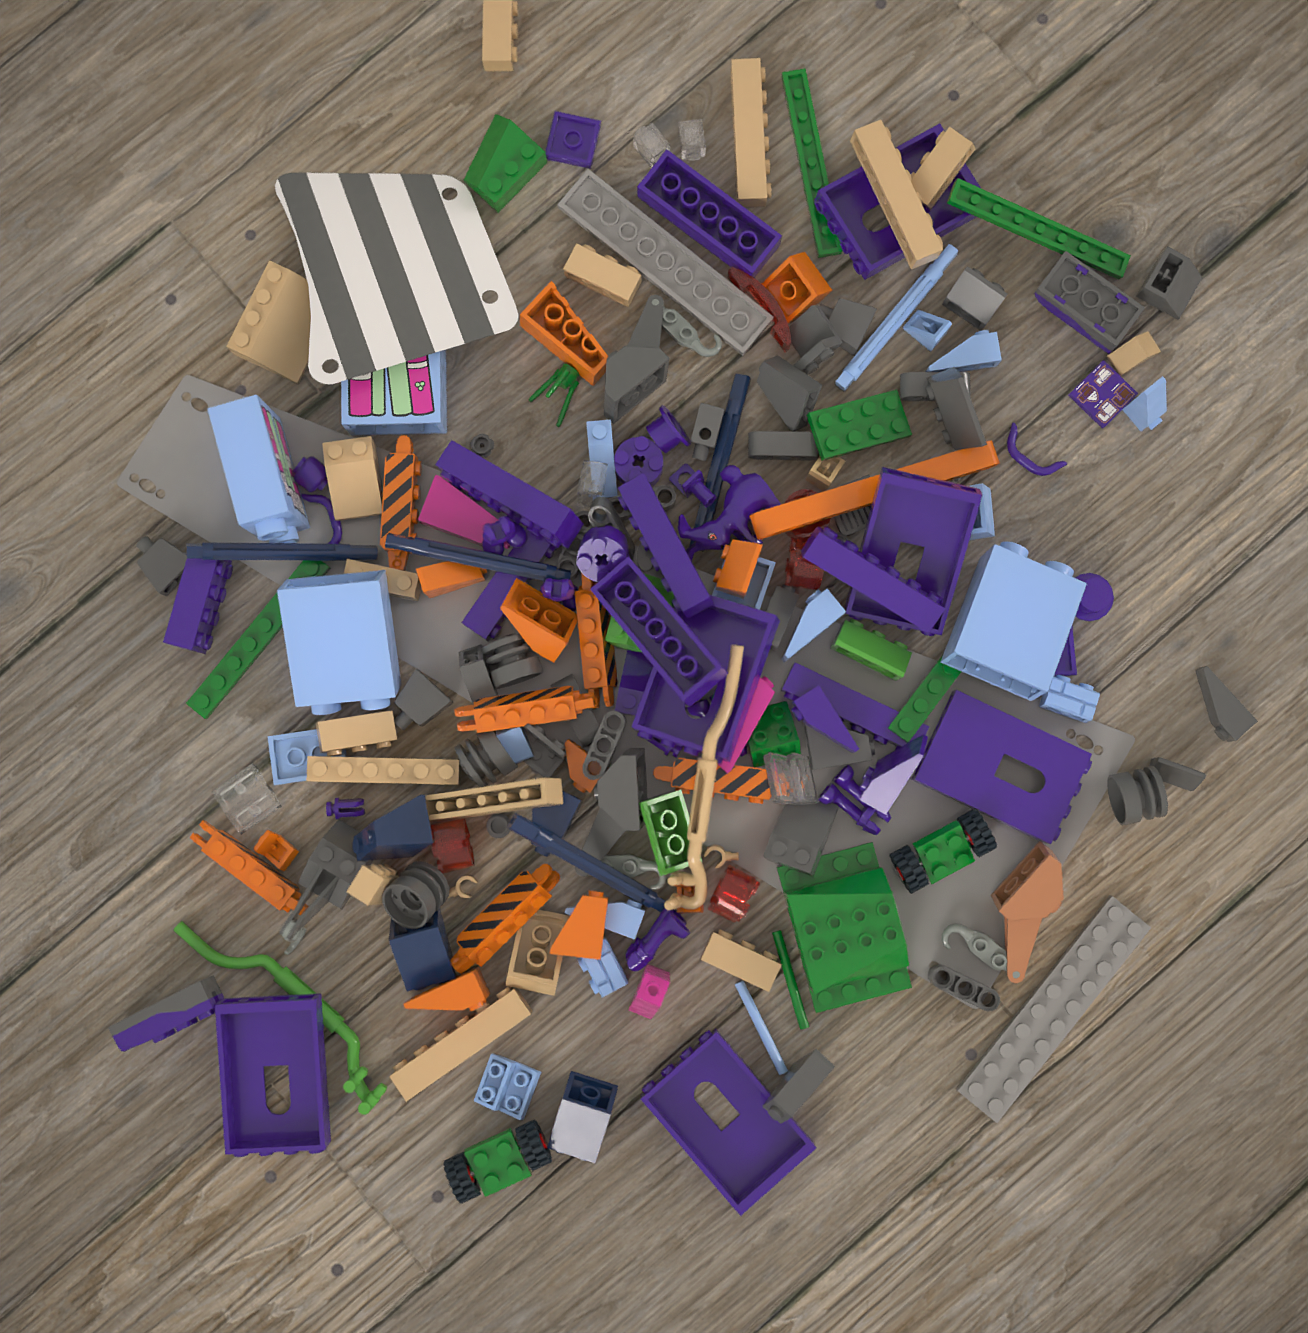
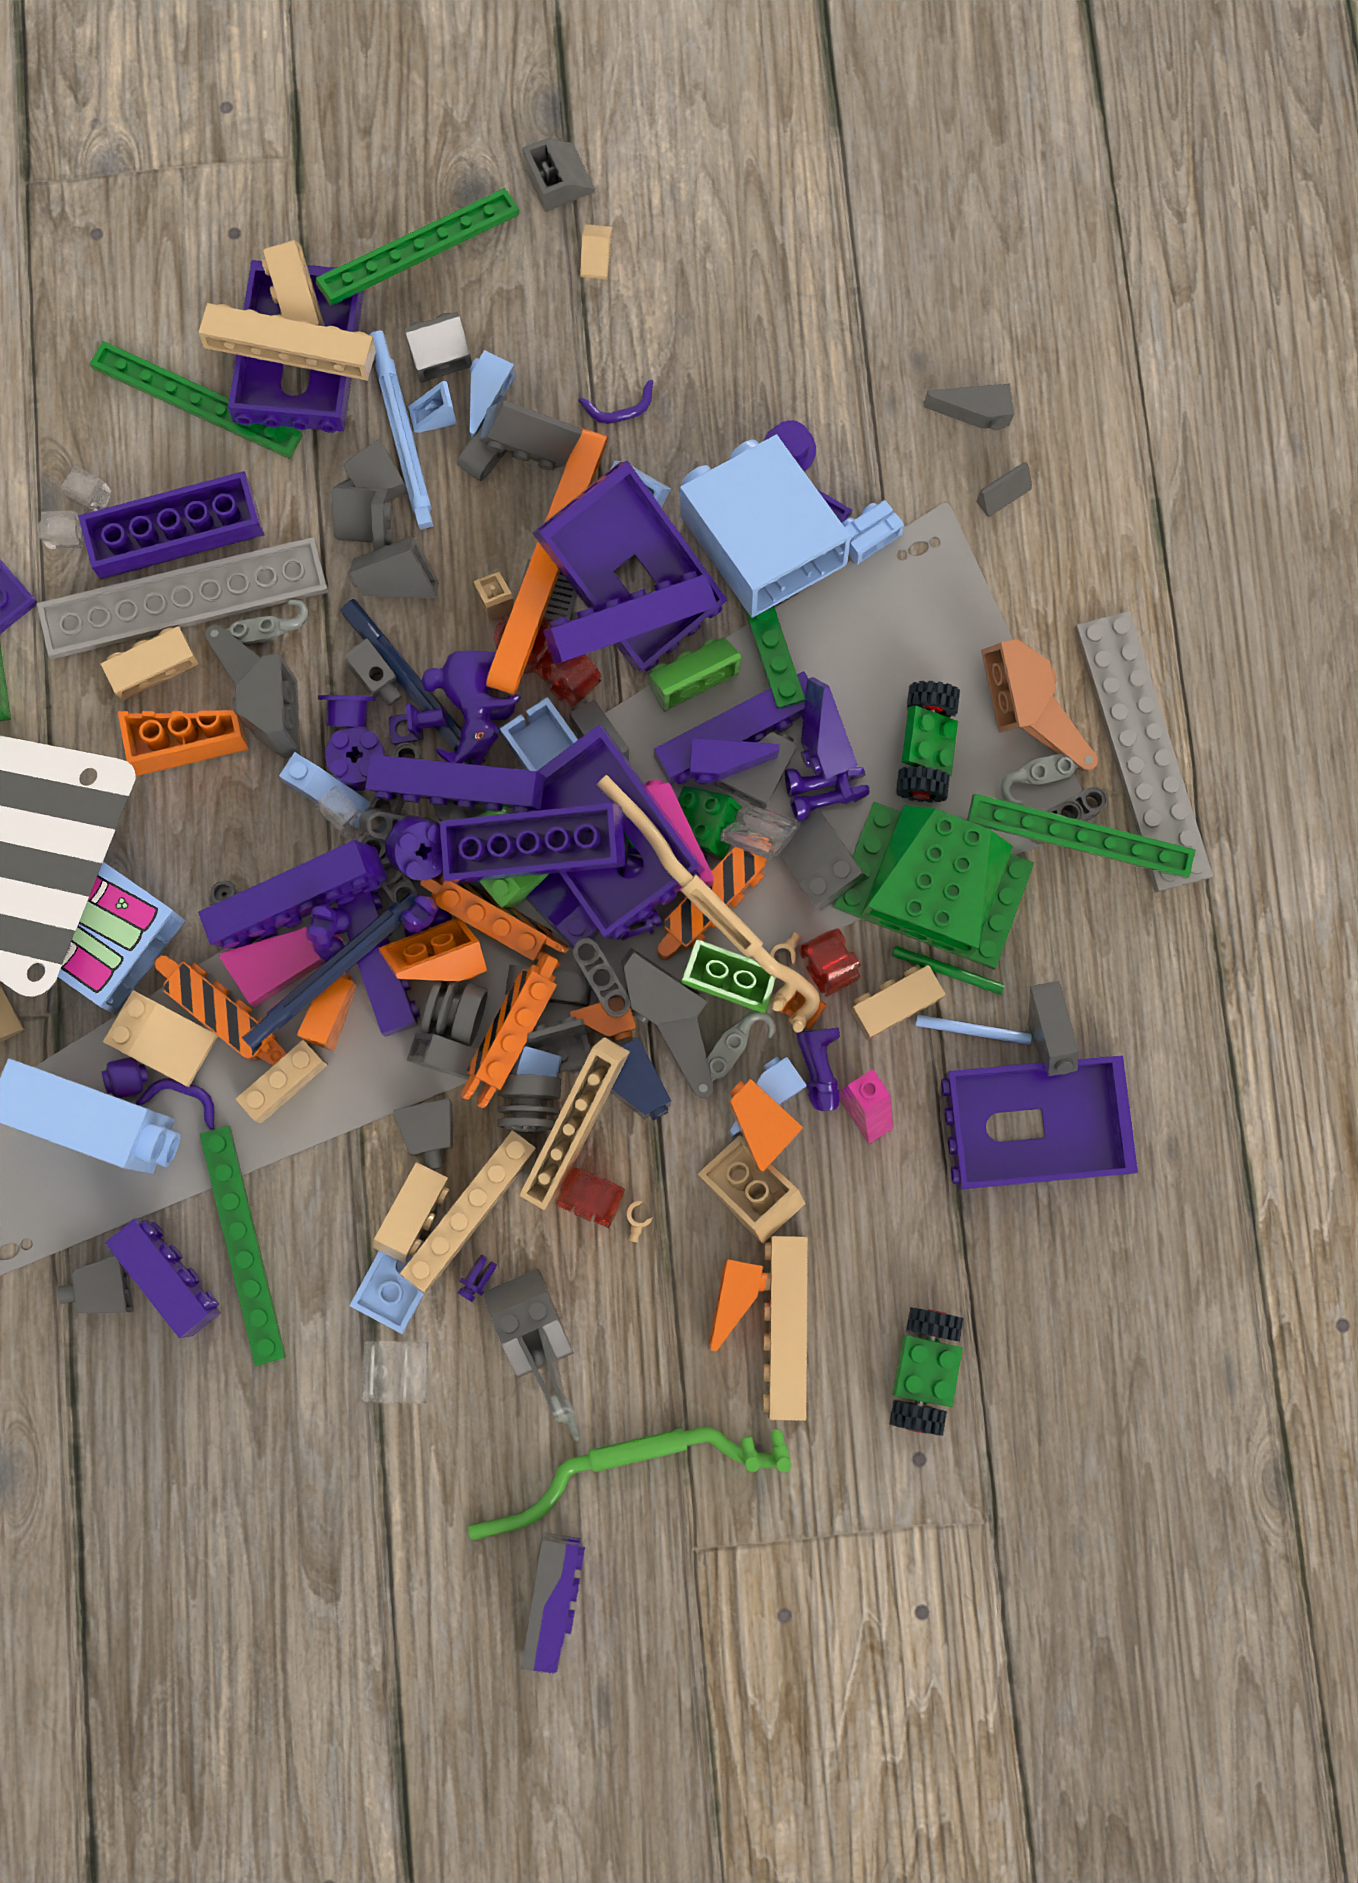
camera: 65 degrees left, 5 degrees down
(249, 868) = (467, 1416): orange hinge -> none
(272, 1033) = (645, 1510): dark purple panel -> none
(276, 849) = (467, 1377): orange bracket -> none
(281, 551) = (177, 1158): dark blue piece -> none
(340, 640) = (311, 1161): light blue brick -> none
(371, 883) = (572, 1296): tan brick -> none
(396, 834) = (540, 1240): dark blue slope -> none
(415, 895) = (612, 1265): dark grey wheel -> none
(422, 953) = (668, 1299): dark blue slope -> none
(497, 825) = (603, 1141): dark grey plate -> none
(504, 917) = (695, 1197): orange hinge -> none
(507, 1086) = (860, 1313): light blue slope -> none
(565, 378) = (220, 770): green plant -> none
(583, 1117) = (941, 1258): slope -> none
(585, 862) = (700, 1075): dark blue piece -> none
(605, 973) = (816, 1138): light blue brick -> none
(738, 567) = (527, 730): orange slope -> none
(746, 283) = (287, 532): clear red slope -> none
(749, 132) = (121, 433): tan brick -> none
(782, 445) = (441, 615): dark grey beam -> none
(797, 285) = (301, 498): orange slope -> none
(816, 617) = (625, 695): light blue slope -> none
(859, 425) = (475, 533): green plate -> none
(952, 1009) = (1081, 836): none -> green plate
(968, 751) = (852, 654): dark purple panel -> none
(1088, 302) = (519, 253): dark grey piece -> none
(1103, 394) = (613, 303): dark purple tile -> none
(1137, 795) = (1001, 534): dark grey wheel -> none
(1148, 406) = (654, 269): light blue slope -> none

